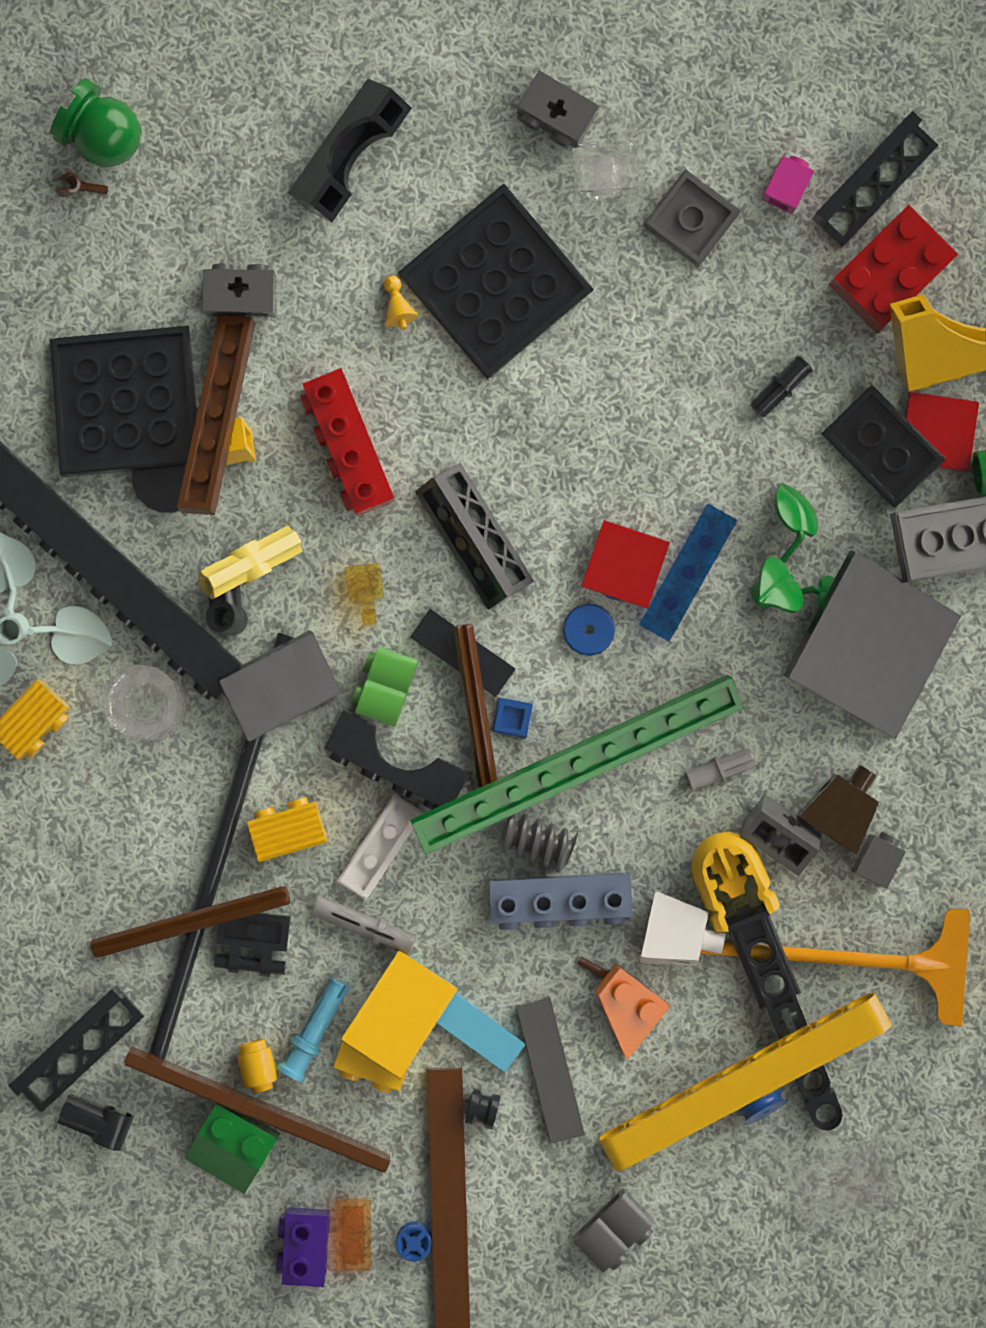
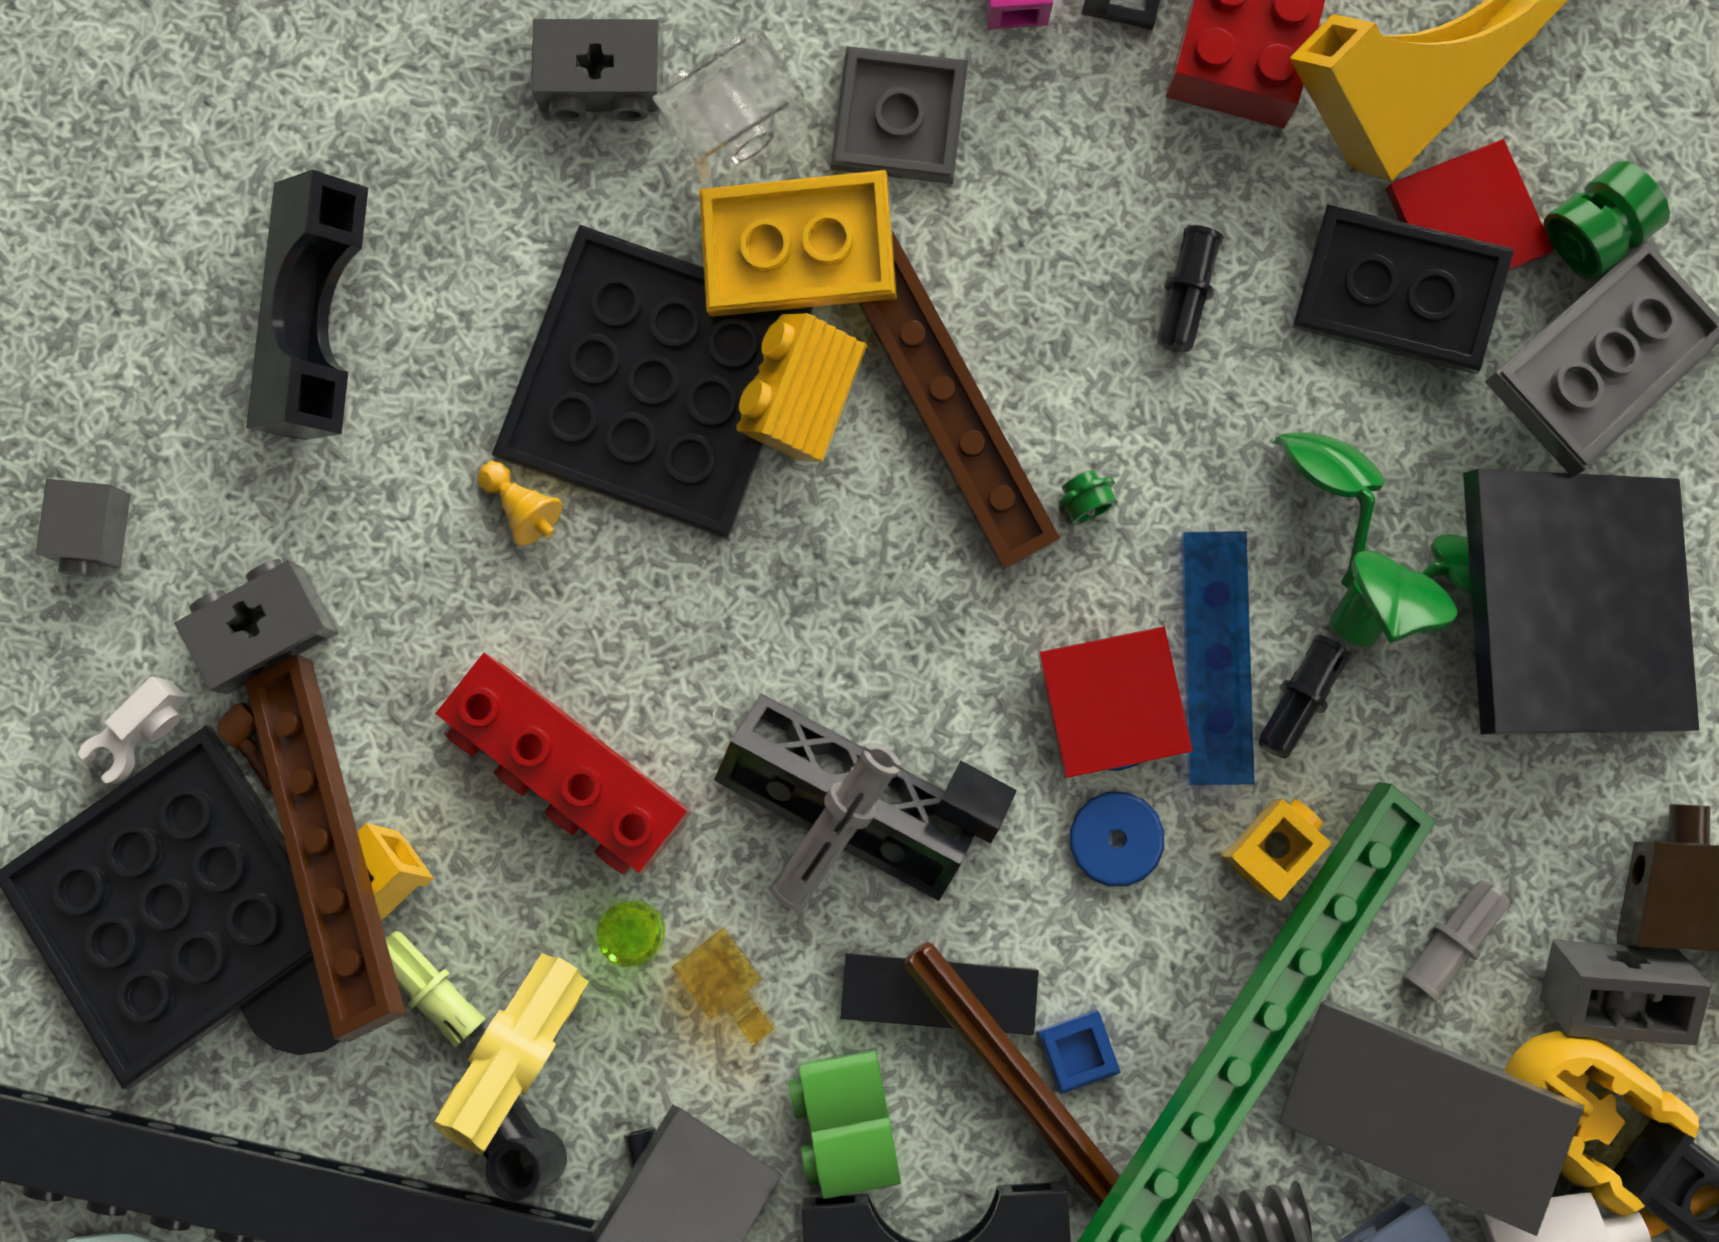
camera: 30 degrees left, 5 degrees down
(164, 305) = (143, 716): none -> white plate
(183, 195) = (82, 526): none -> dark grey brick
(203, 335) = (237, 729): none -> reddish brown hand
(227, 516) = (432, 991): none -> yellowish green axle
(342, 543) = (645, 929): none -> clear neon green wheel
(486, 532) = (848, 808): none -> light grey pin
(532, 573) = (975, 802): none -> black tile
(564, 326) = (800, 386): none -> yellow brick
(603, 255) = (797, 243): none -> yellow tile
(632, 366) = (959, 419): none -> reddish brown plate
(647, 676) = (1304, 843): none -> yellow brick
(655, 835) = (1431, 1116): none -> dark grey tile
(671, 457) = (1085, 494): none -> green plate
(717, 614) = (1304, 695): none -> black axle

